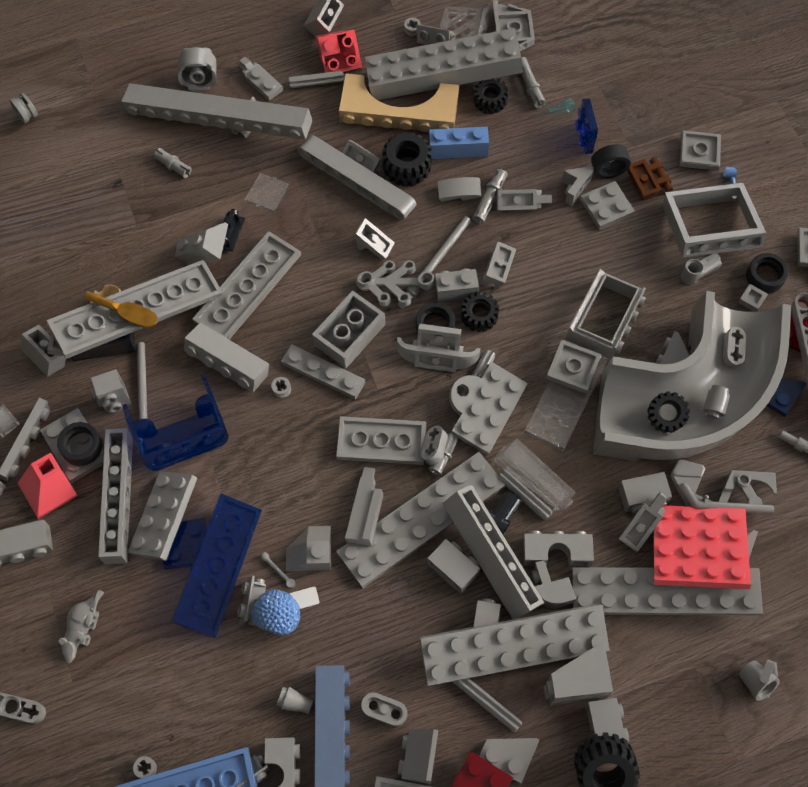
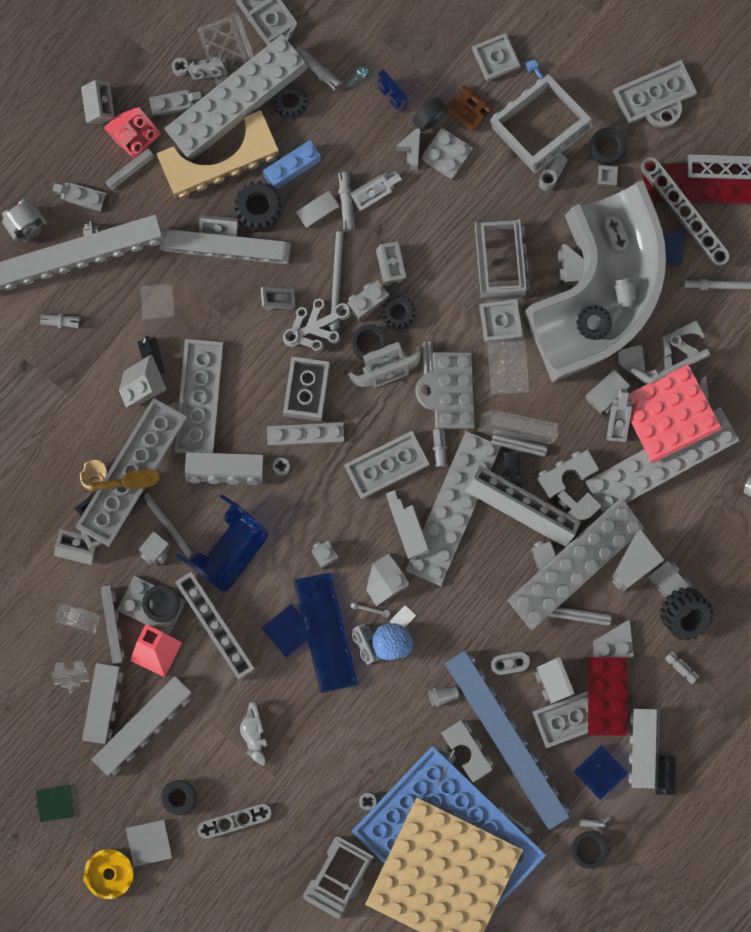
camera: 30 degrees left, 15 degrees up
(162, 515) = (259, 620): light grey plate -> none
(266, 488) = (324, 554): none -> light grey brick
(379, 46) = (173, 102): none -> light grey hinge
(434, 445) = (431, 446): light grey beam -> none
(454, 565) = (499, 531): light grey brick -> none

